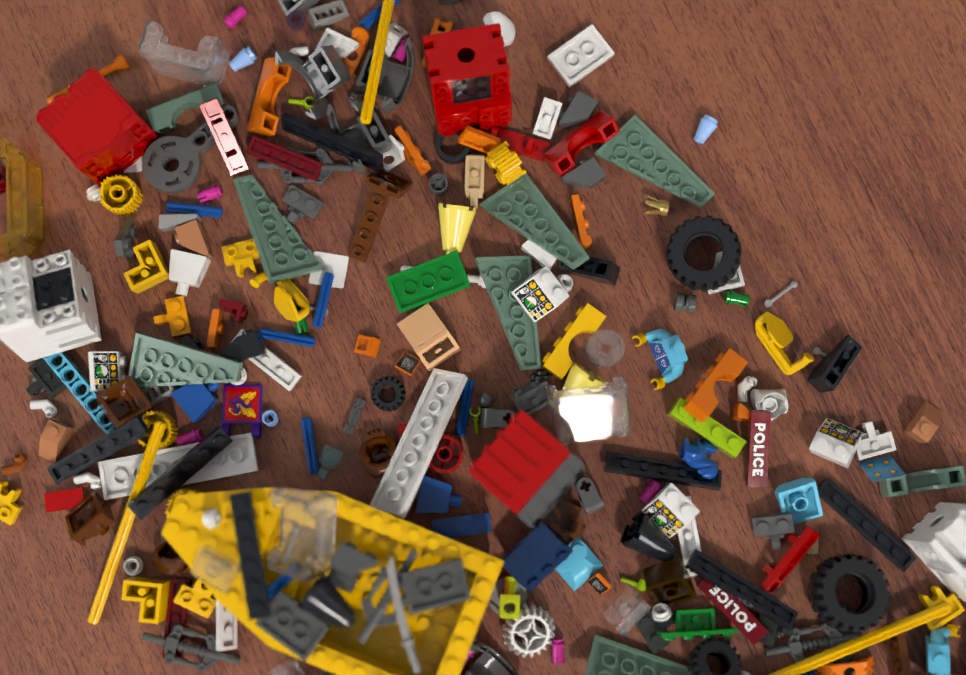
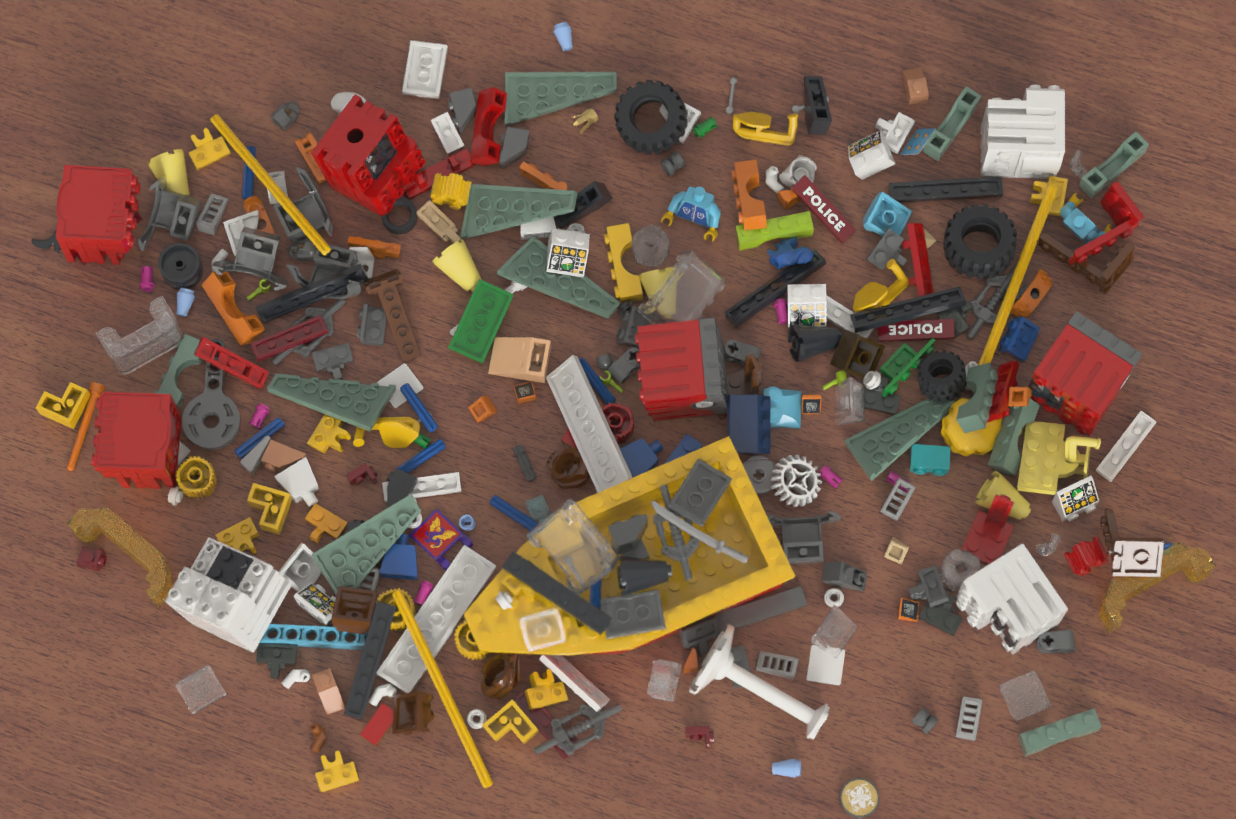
camera: 45 degrees left, 10 degrees down
(84, 54) = (64, 410): none -> yellow brick
(107, 267) = (239, 536): none -> yellow plate
(121, 333) = (301, 568): none -> white slope
(124, 239) = (235, 502): dark grey hinge -> none
(179, 473) = (444, 616): black plate -> none
(215, 329) = (363, 500): orange plate -> none
(264, 30) = (180, 266): none -> black wheel
(296, 17) = (195, 234): clear purple cone -> none
(351, 207) = (372, 326): none -> dark grey bracket
(376, 393) = (532, 435): black tyre -> none
(400, 53) = (294, 186): dark pink pin -> none
(438, 181) = (417, 247): dark grey wheel -> none
(478, 140) = (415, 192): orange plate -> none
(509, 597) = (760, 469): neon yellow bracket -> none
(728, 551) = (878, 295): none -> yellow piece

